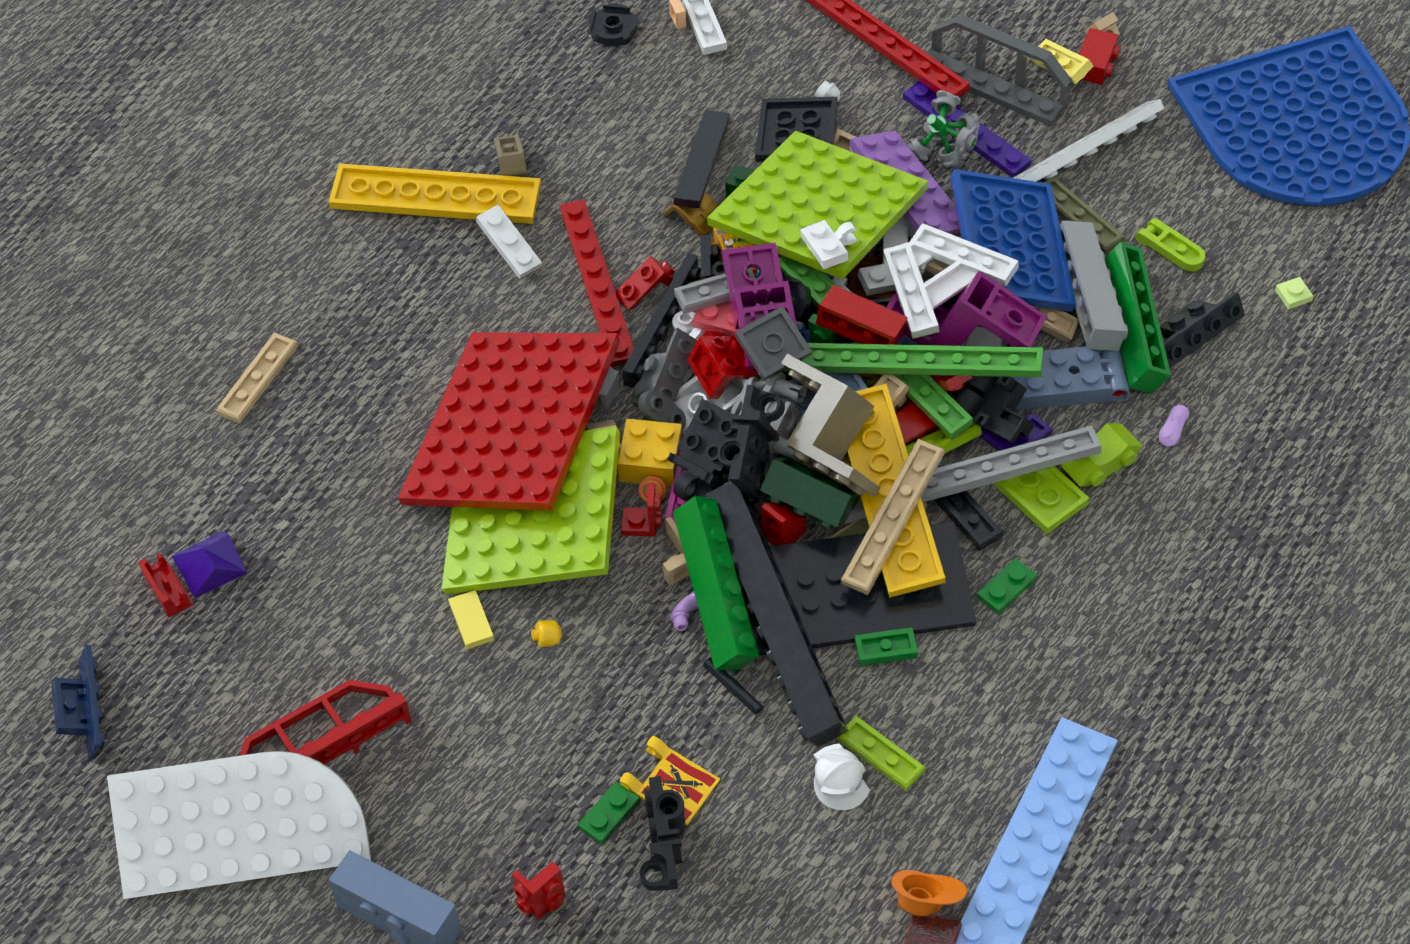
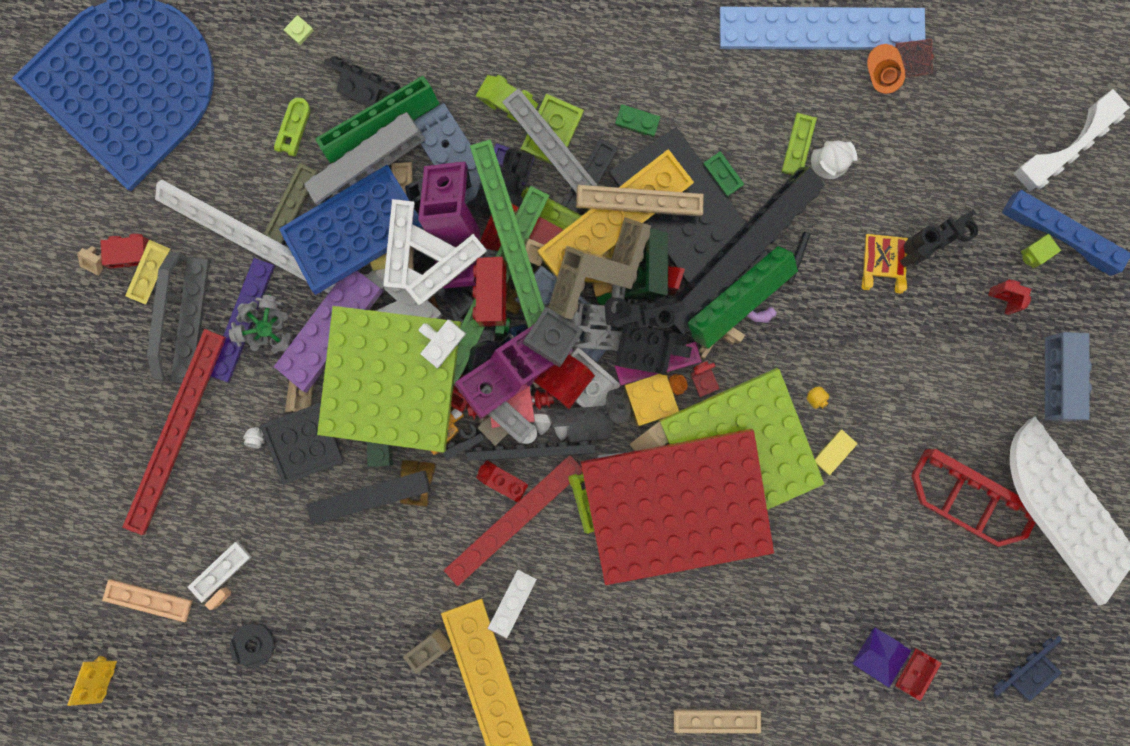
camera: 120 degrees left, 30 degrees up
(608, 813) = (926, 289): green plate -> none
(1171, 431) = (462, 63): lavender piece -> none

